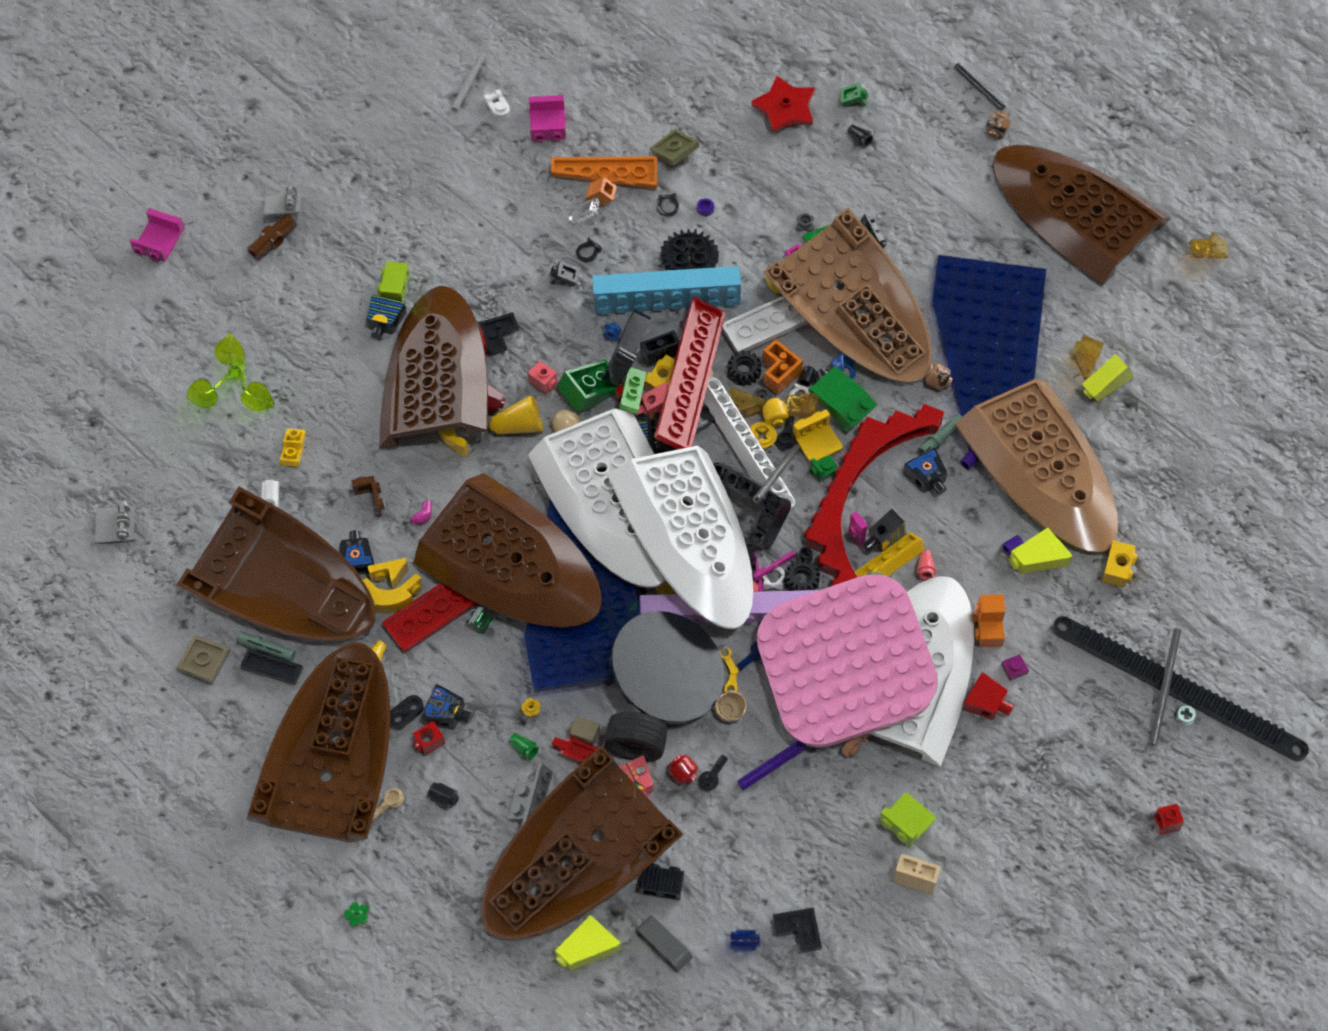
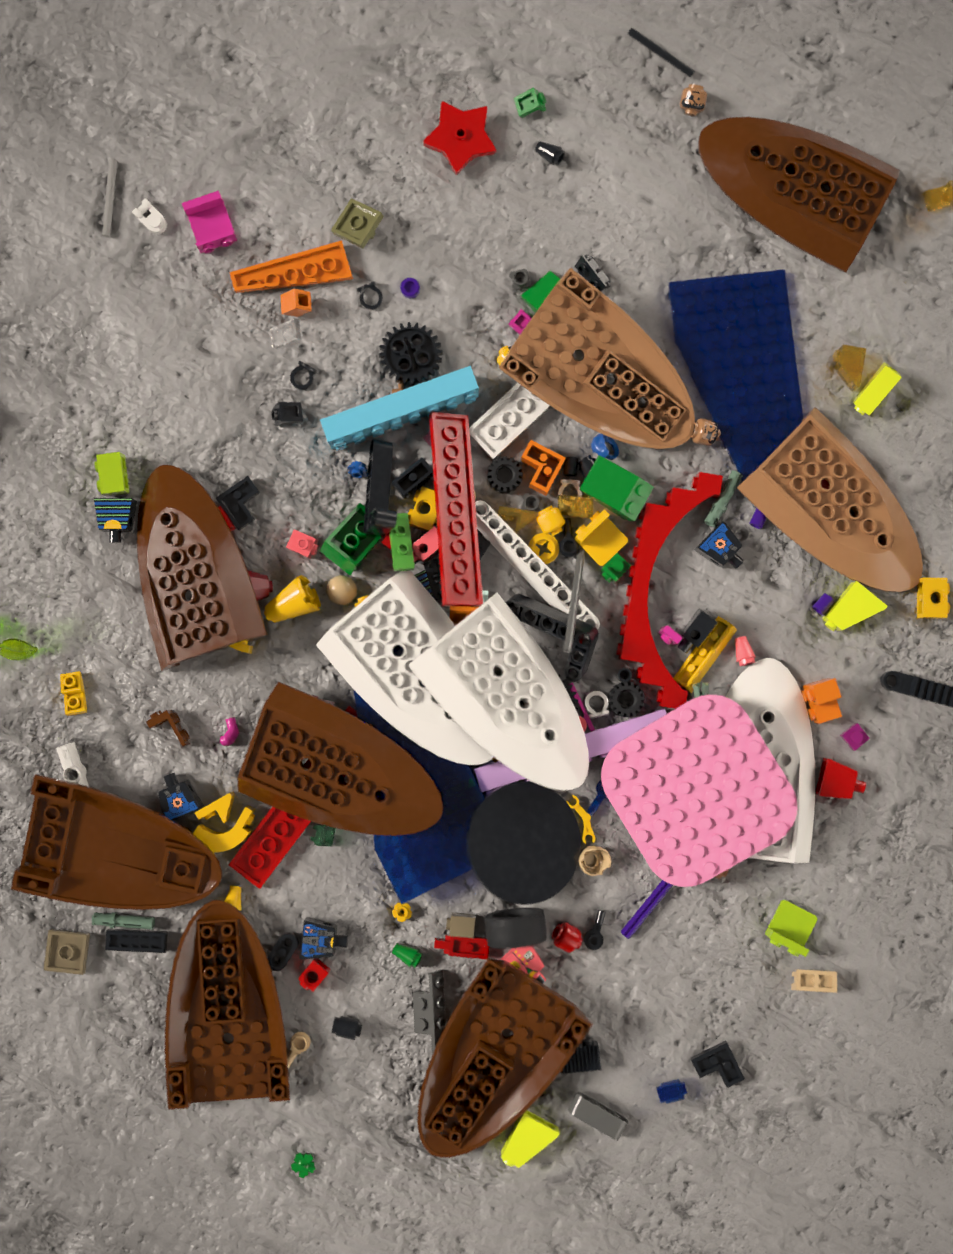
camera: 15 degrees left, 25 degrees up
(764, 571) = (588, 702): dark pink piece -> none

